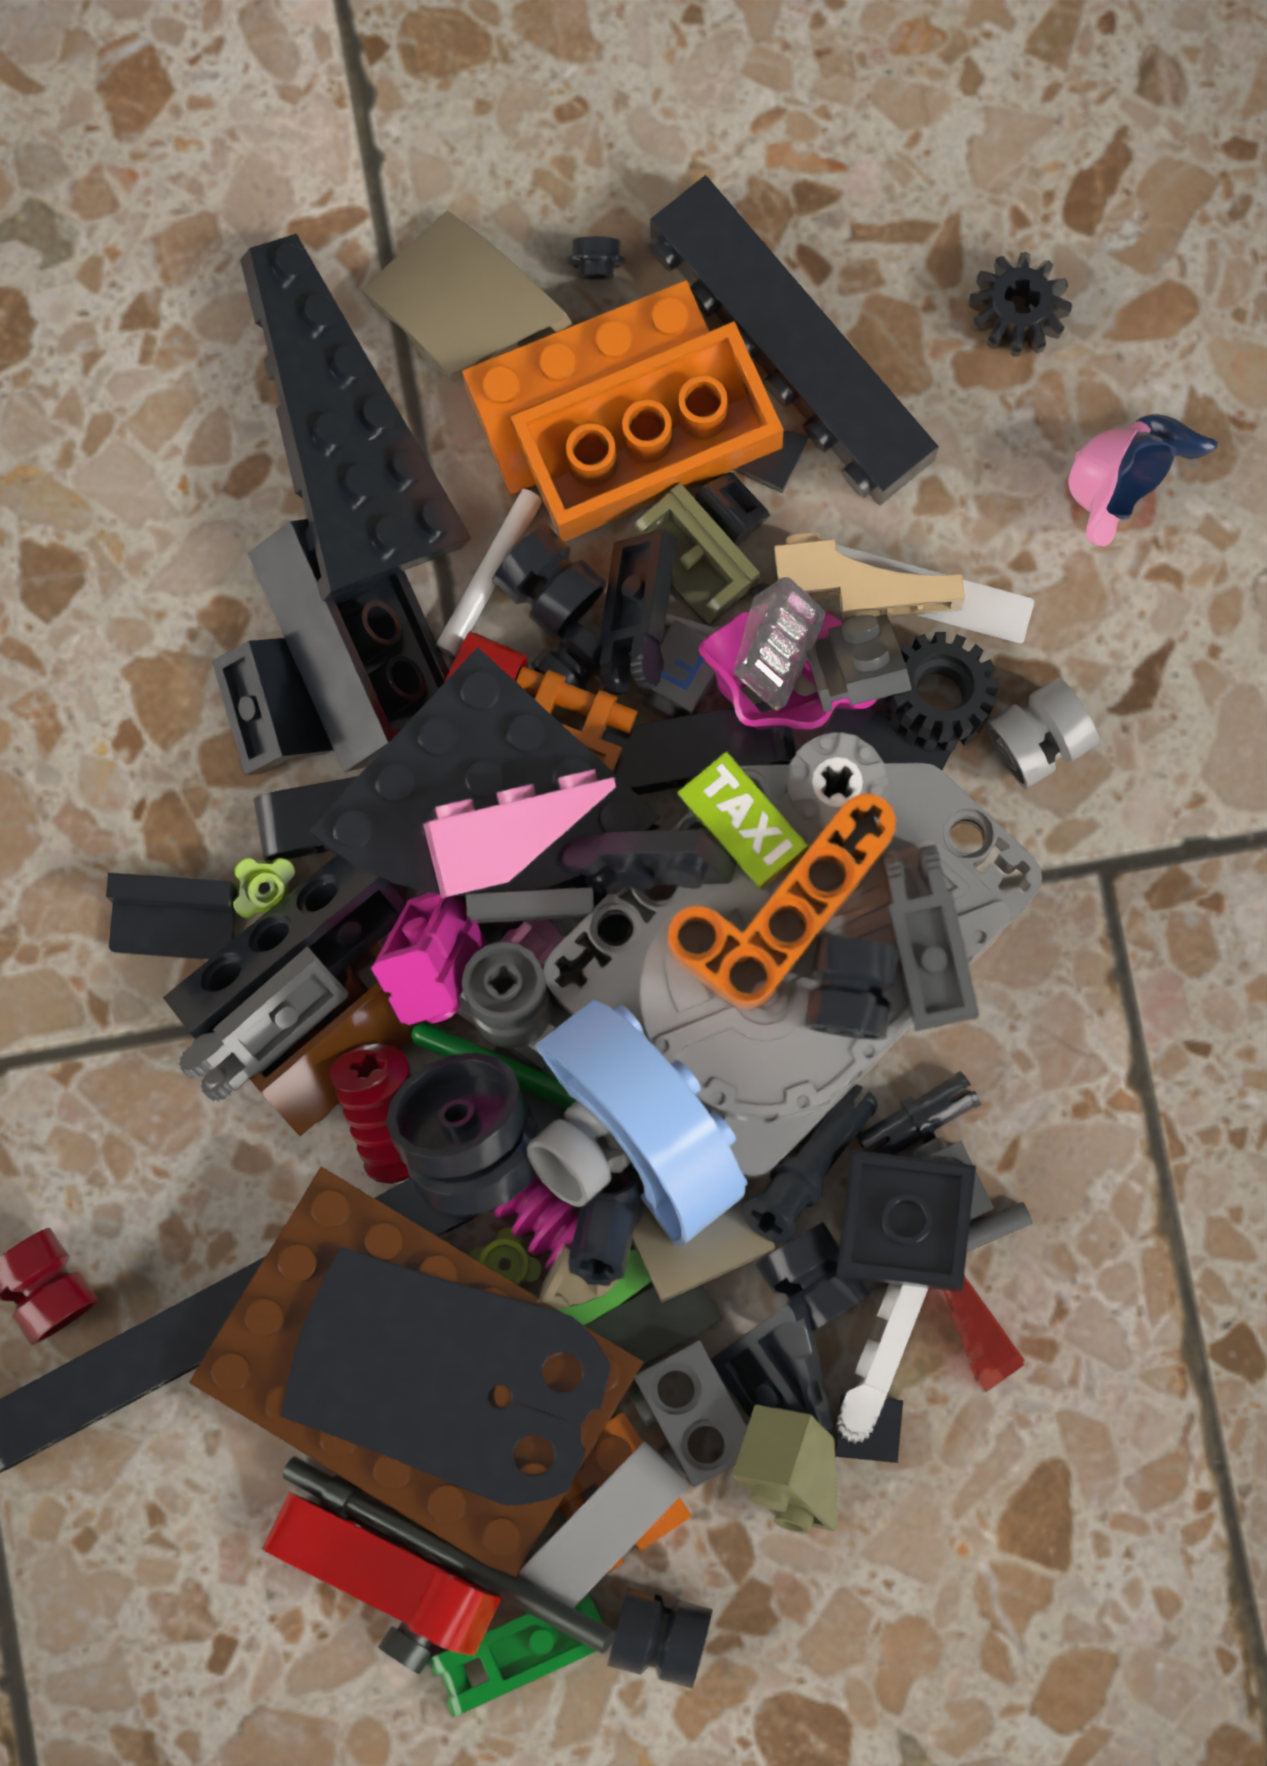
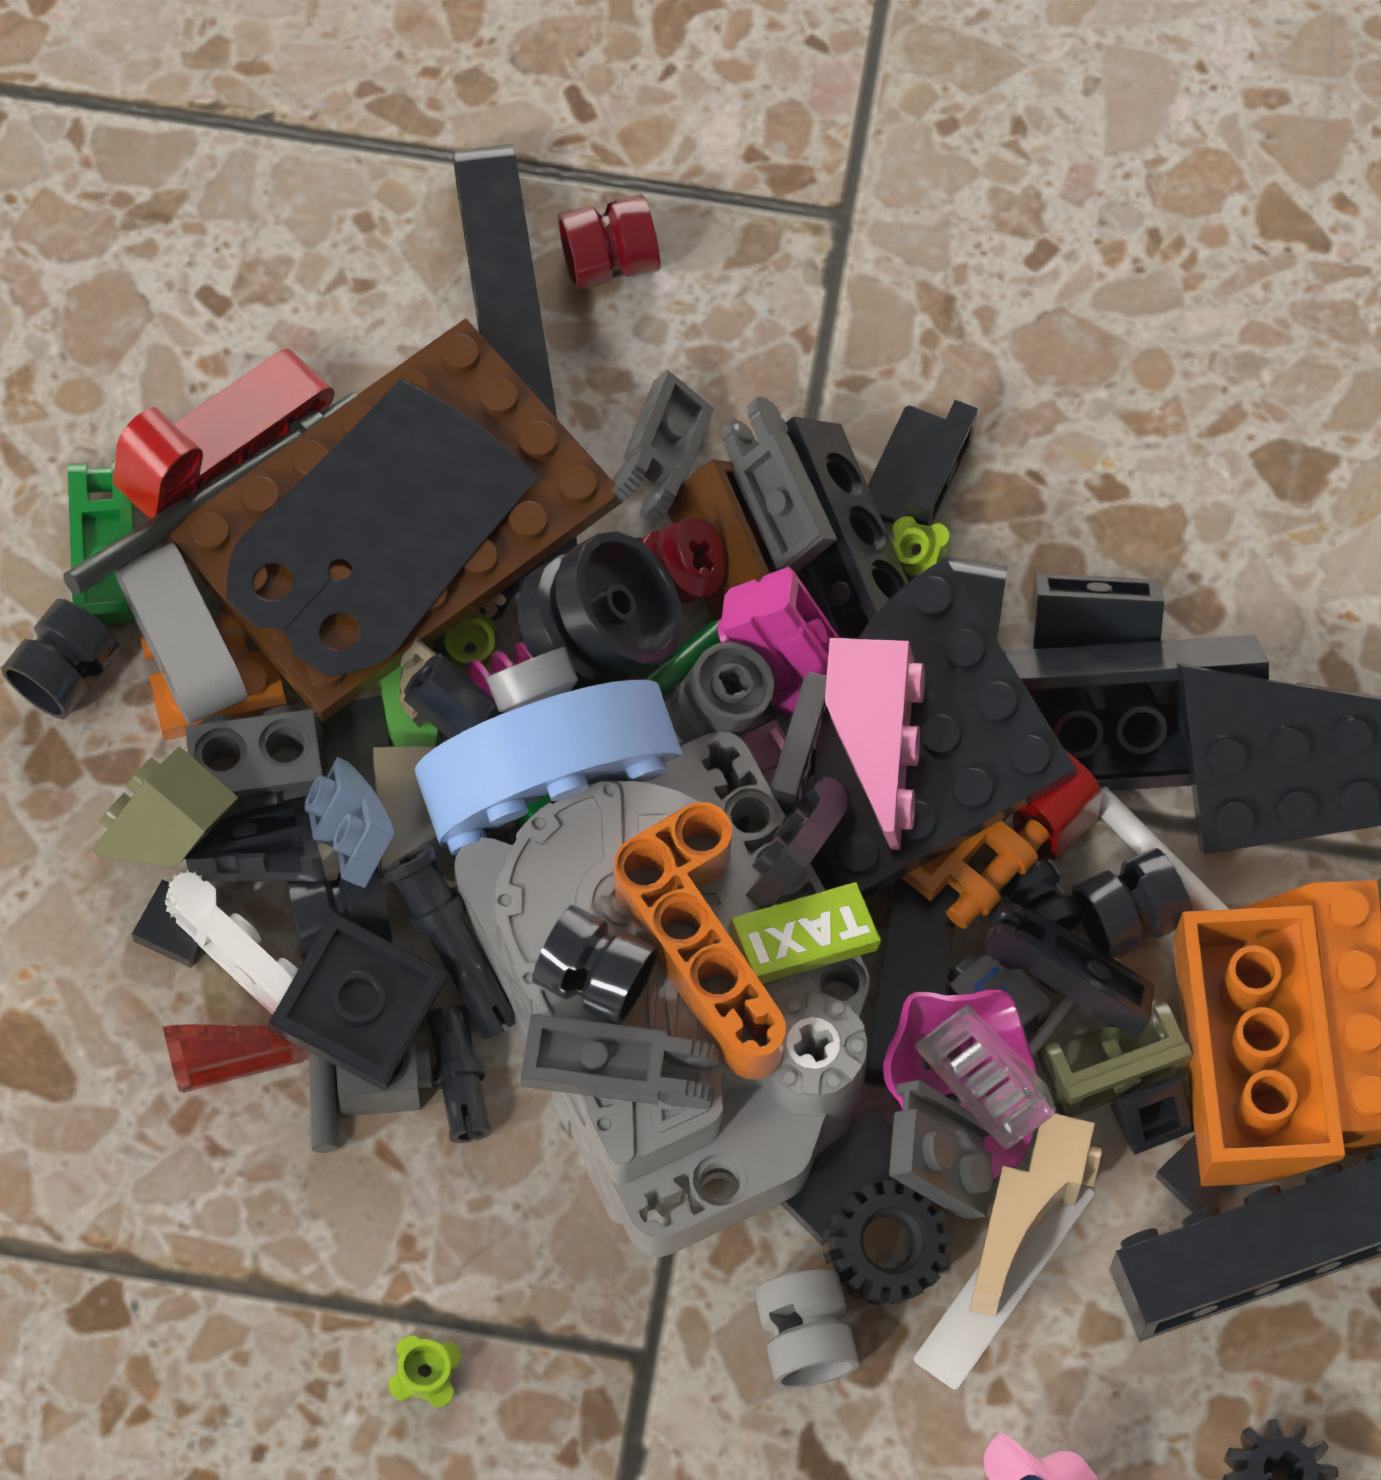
camera: 105 degrees right, 15 degrees down
(248, 1152) = (663, 444): none -> dark grey hinge
(735, 1293) = (350, 820): none -> sand blue slope
(1205, 1035) = (414, 1354): none -> lime plate

